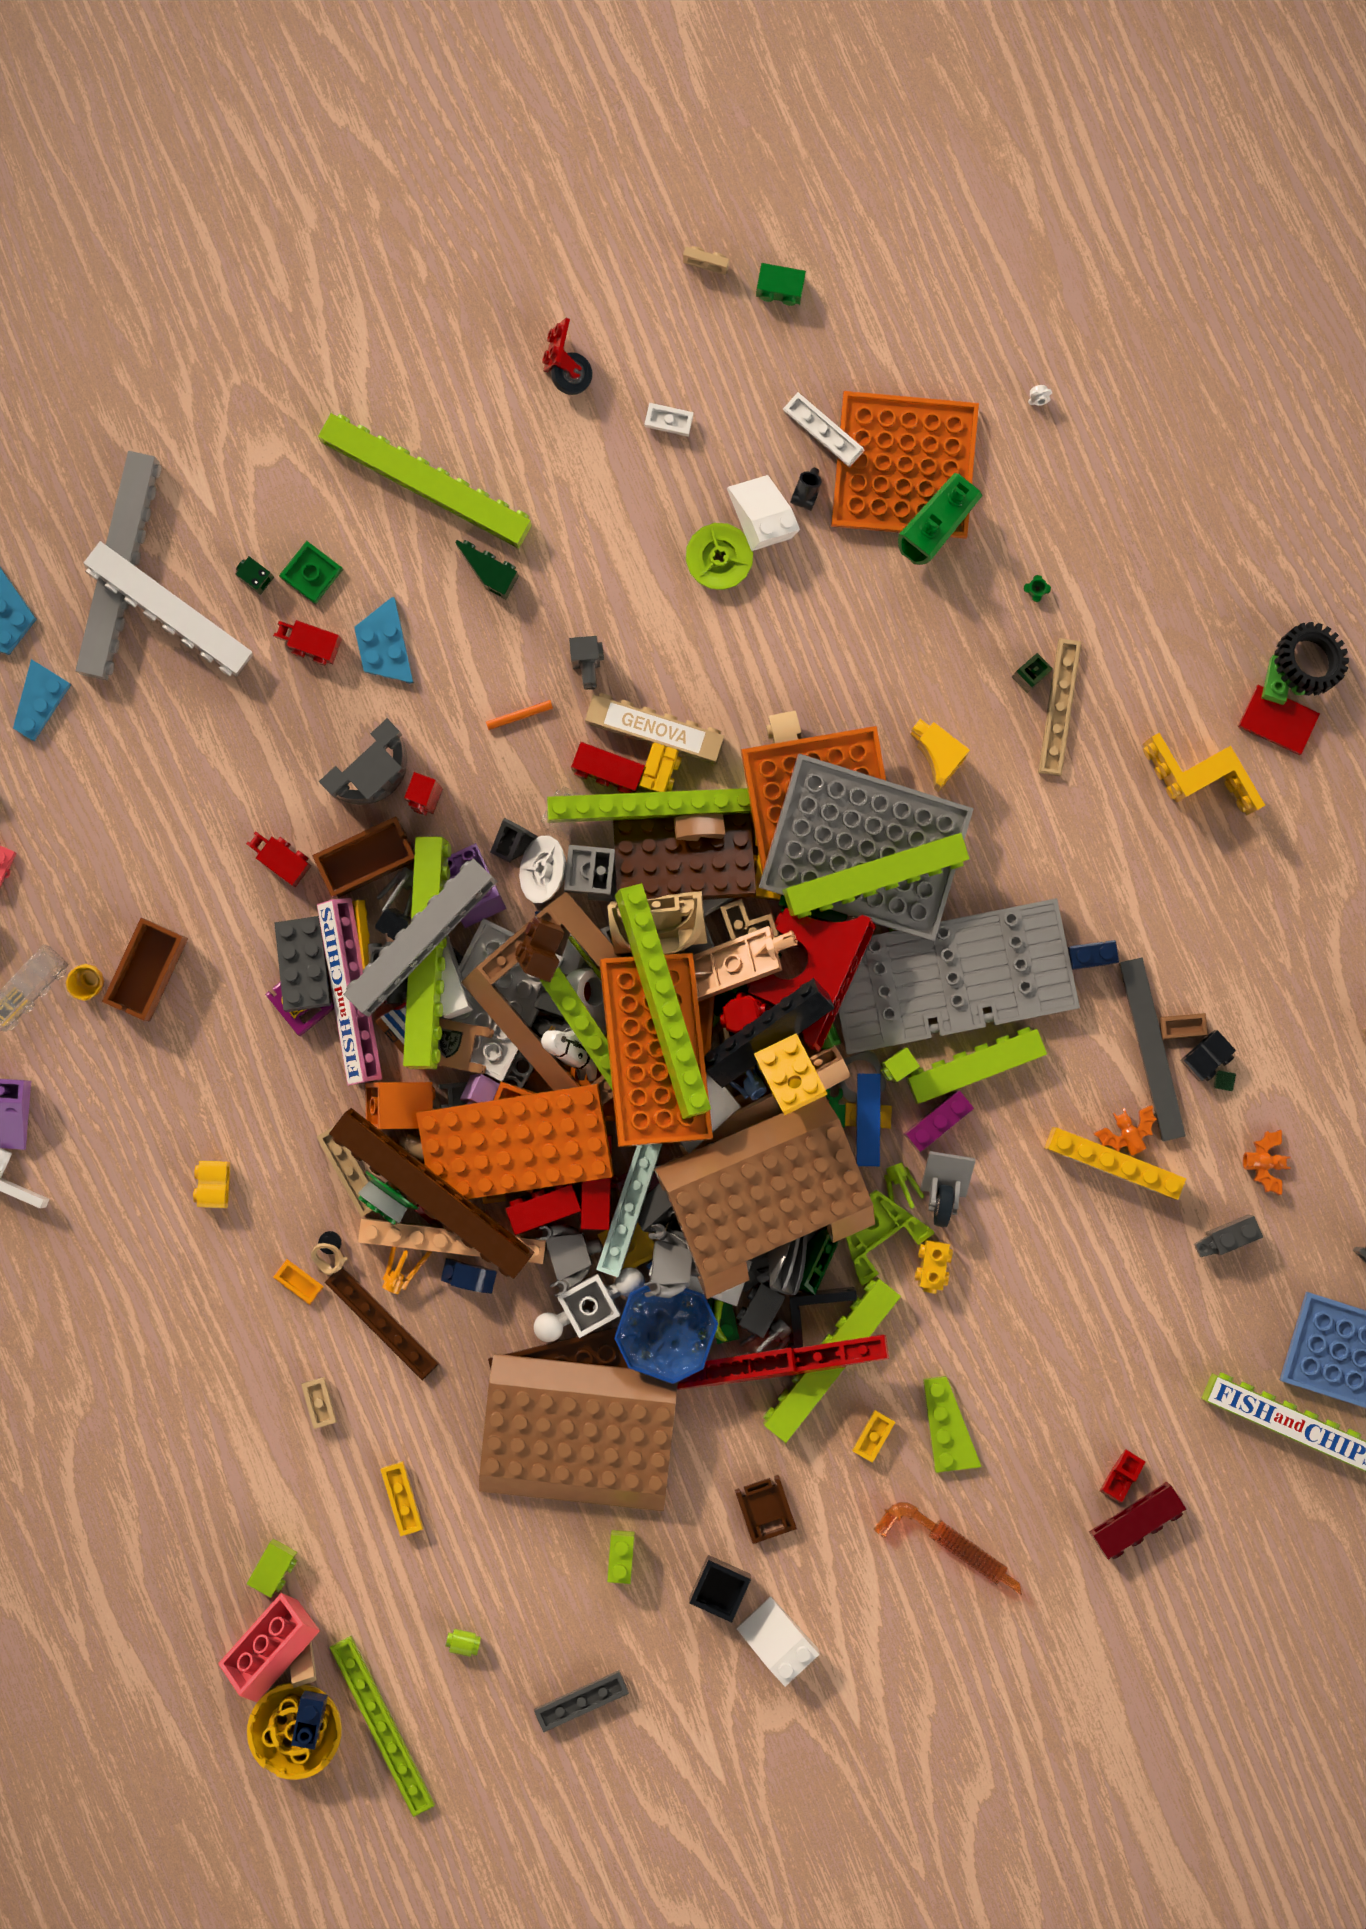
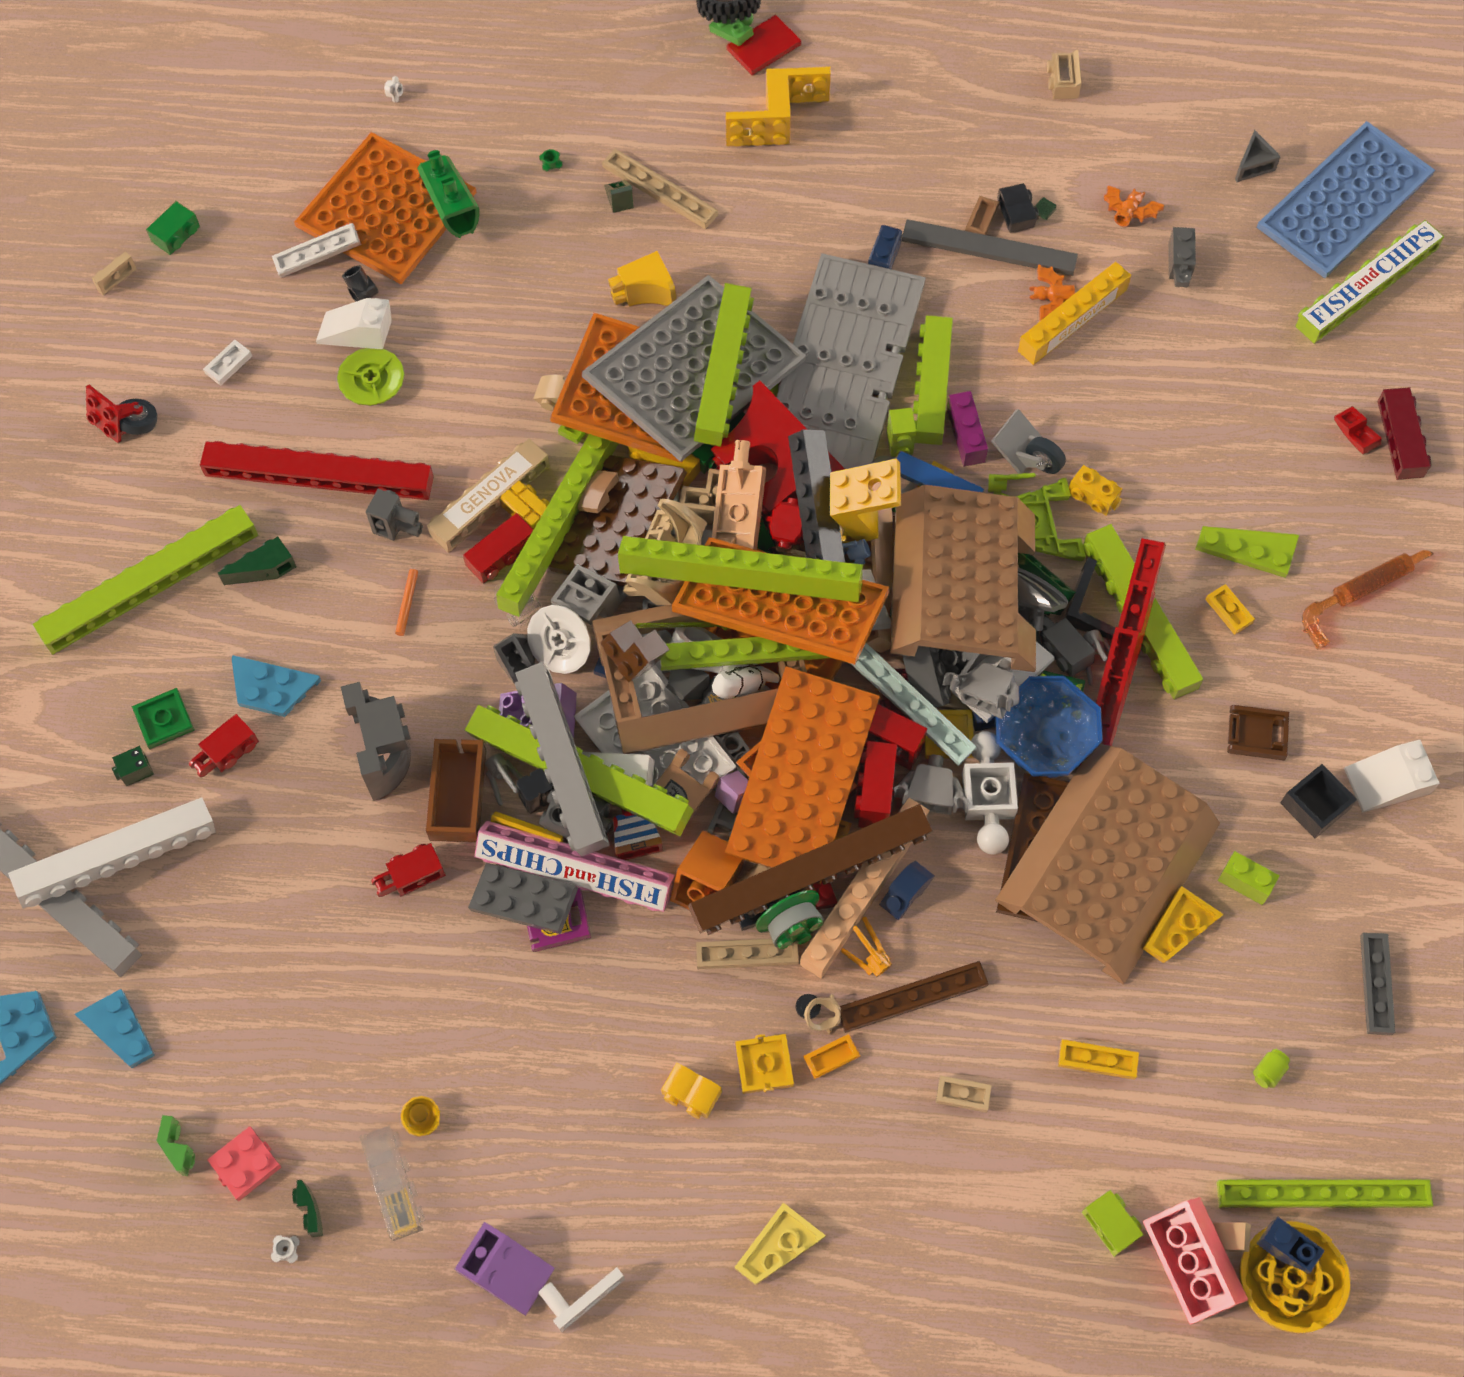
camera: 60 degrees left, 20 degrees down
(129, 1313) = (778, 1244): none -> light yellow wing
(145, 969) = (442, 1048): dark orange piece -> none
(264, 1231) = (764, 1063): none -> yellow plate
(423, 794) = (428, 703): red brick -> none
(552, 1515) = (1180, 924): none -> yellow wing
(602, 565) = (316, 470): none -> red brick

